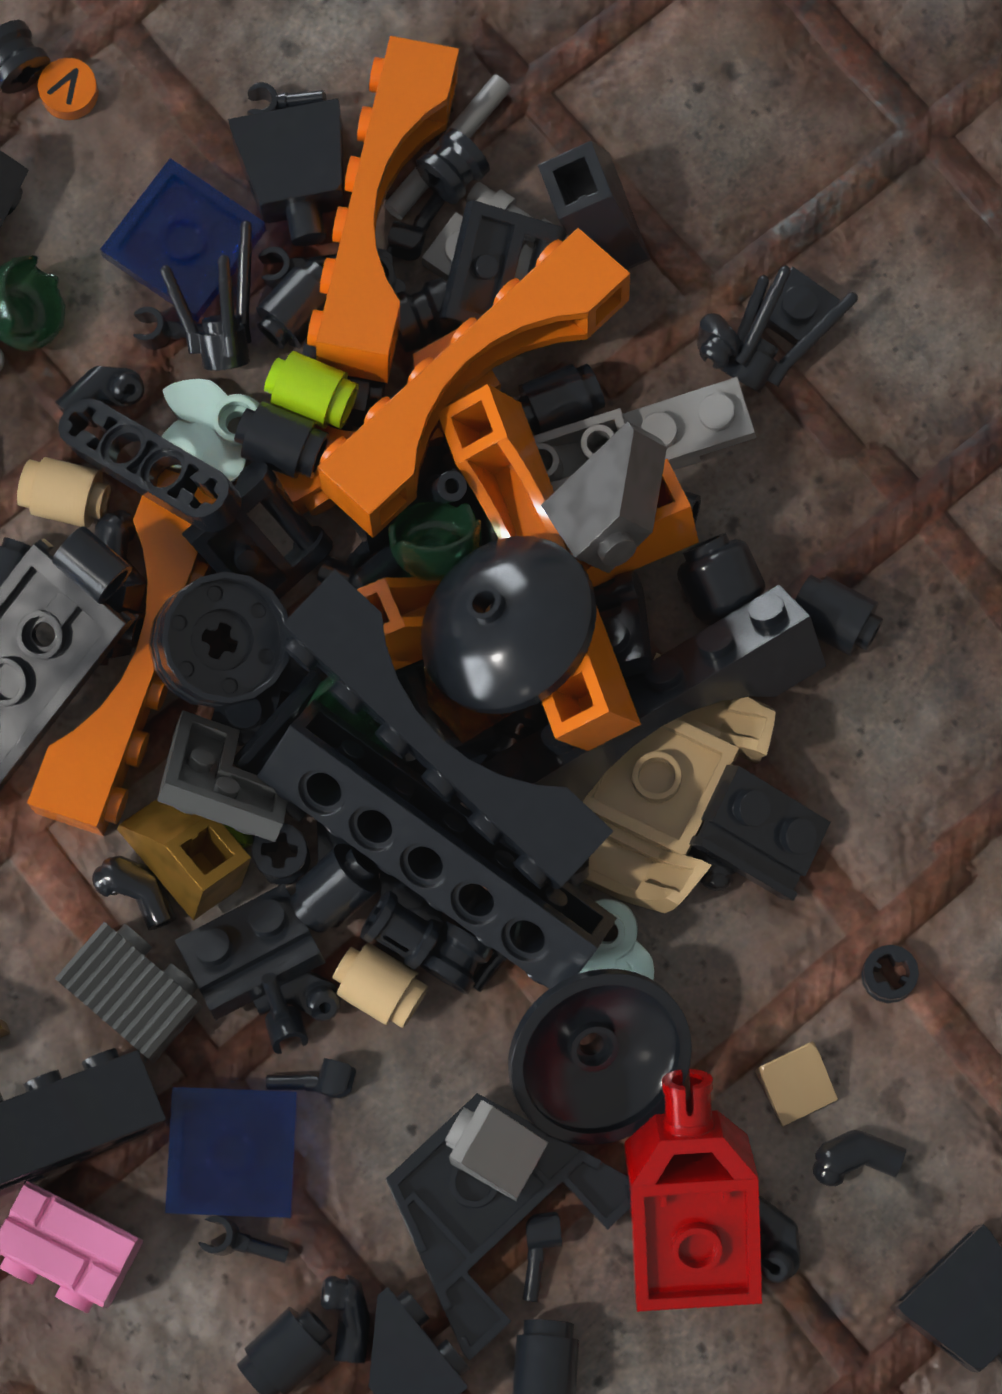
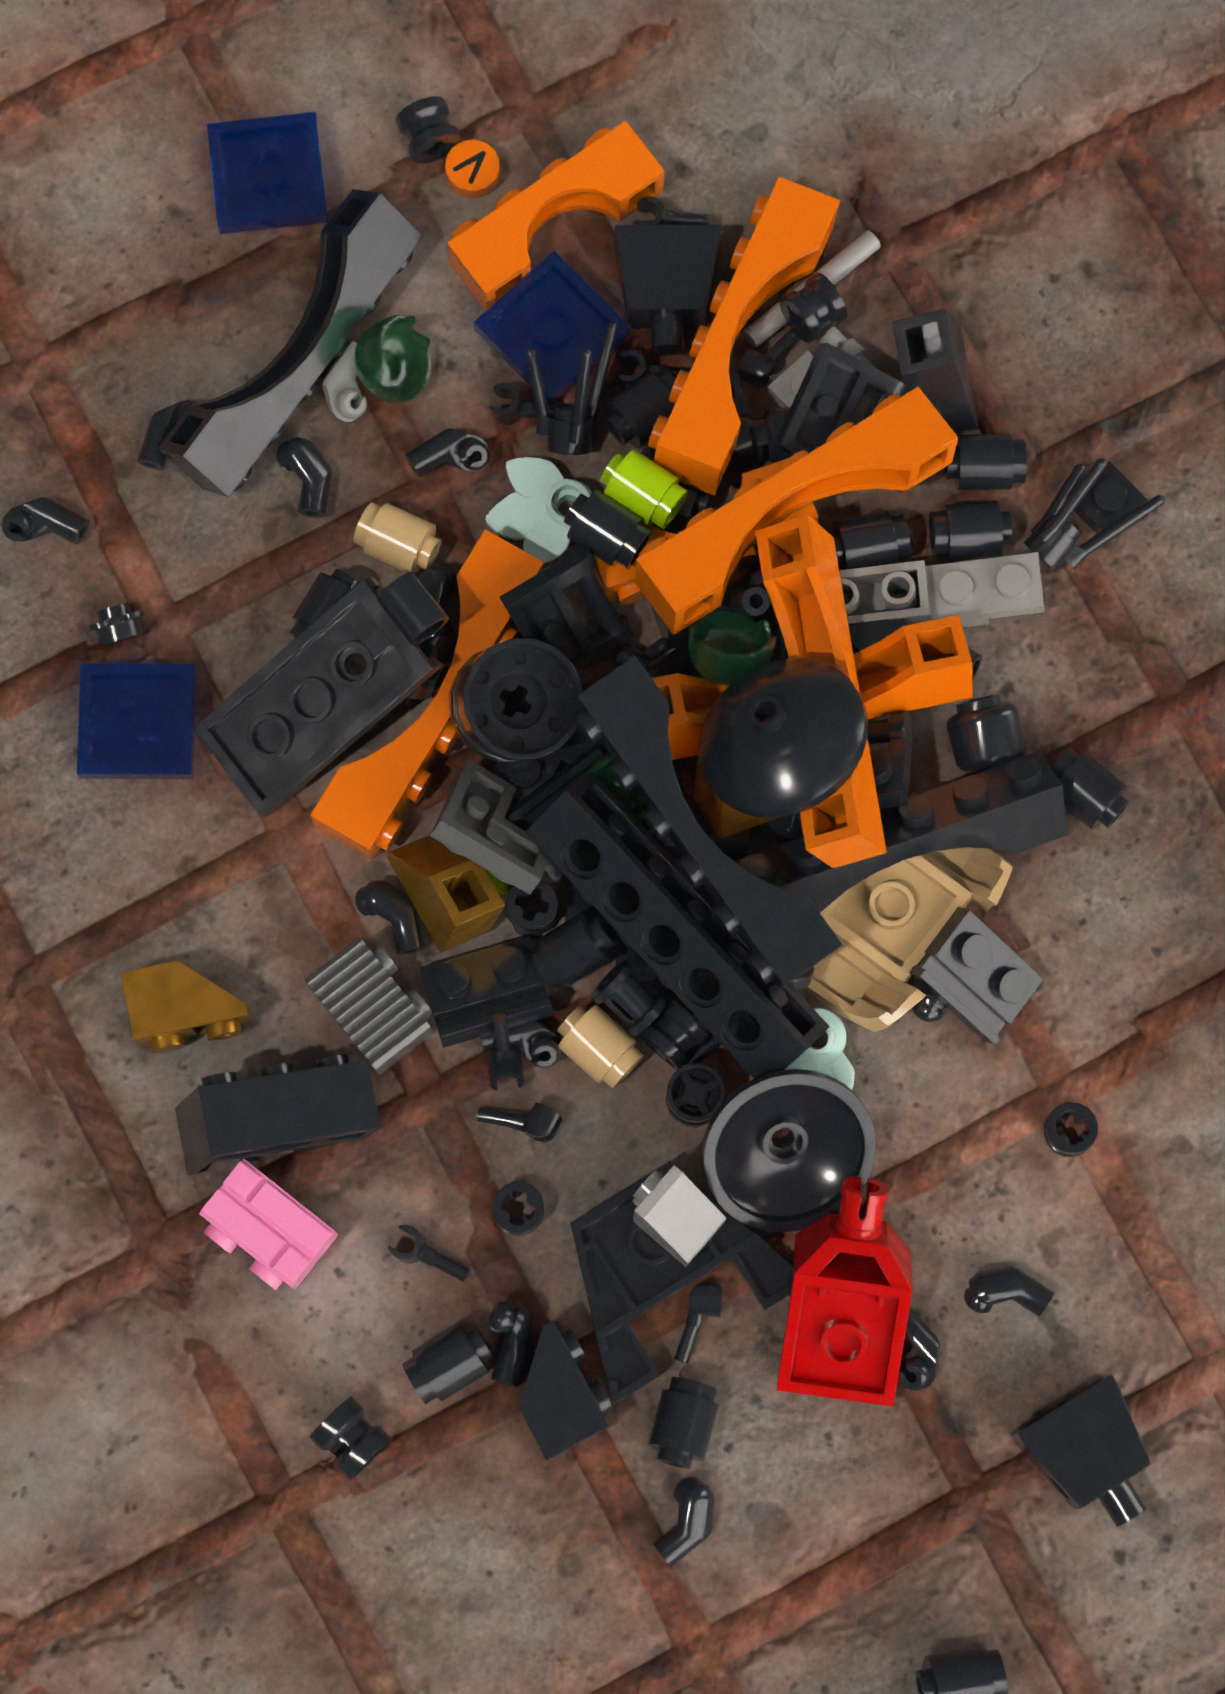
camera: 10 degrees right, 0 degrees up
(145, 468) = (483, 525): black beam -> none
(206, 71) = (602, 177): none -> orange arch
(232, 1152) = (434, 1171): clear blue plate -> none
(314, 1187) = (534, 1200): none -> black bush
(489, 1008) = (698, 1087): none -> black wheel
(610, 499) = (899, 641): flat silver slope -> none
(661, 367) = (969, 530): none -> black brick
(666, 292) = (987, 462): none -> black brick
(717, 340) = (1026, 515): black arm -> none
(796, 1083) = (964, 1212): tan slope -> none

